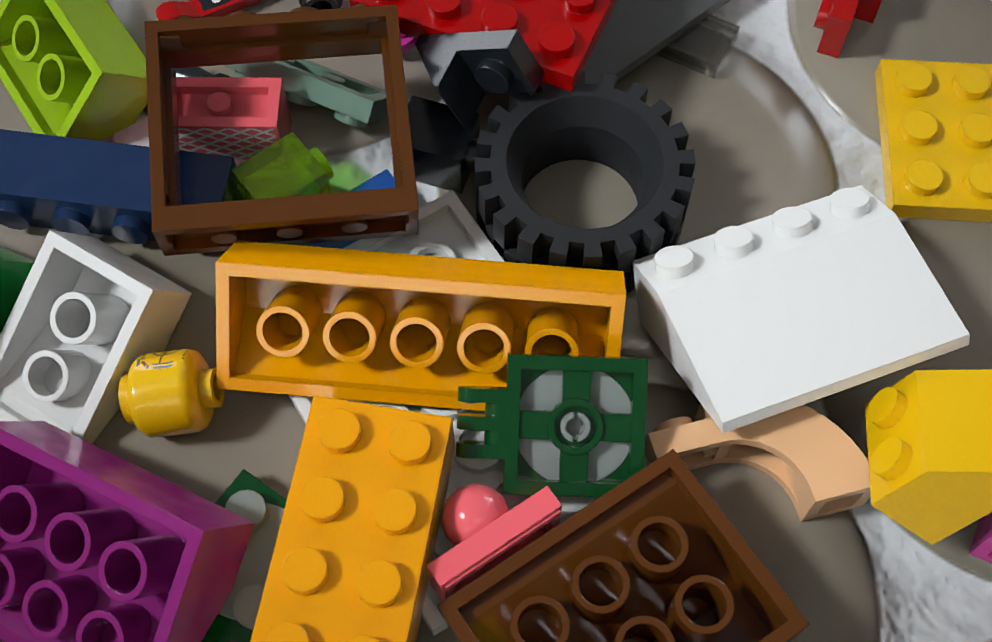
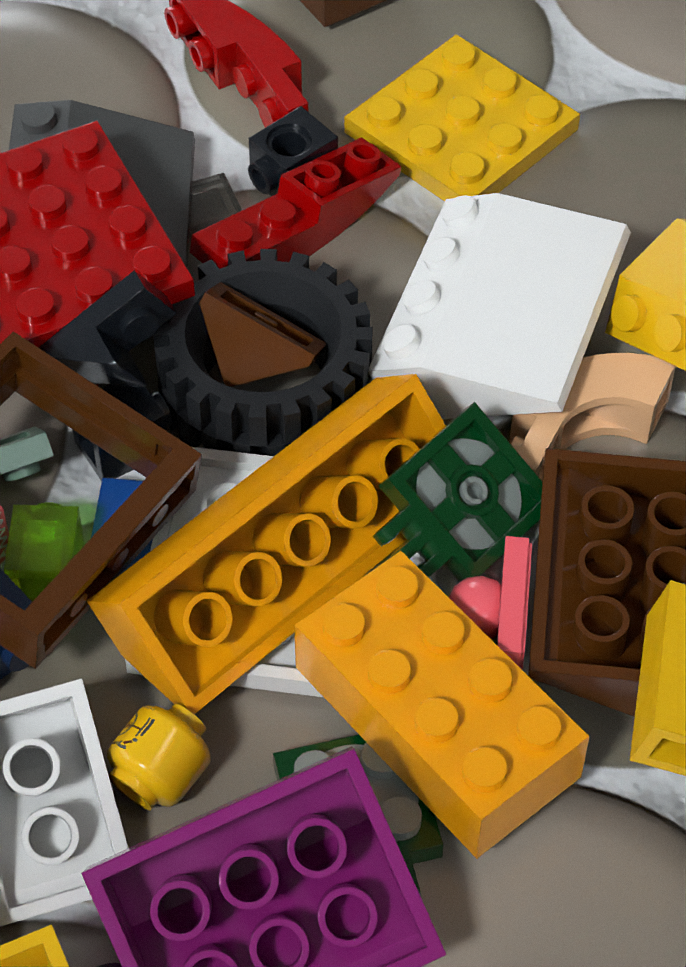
camera: 50 degrees left, 10 degrees down
(576, 158) = (252, 339): none -> reddish brown slope
(760, 107) = (308, 210): none -> red slope
(799, 56) = (285, 146): none -> black brick

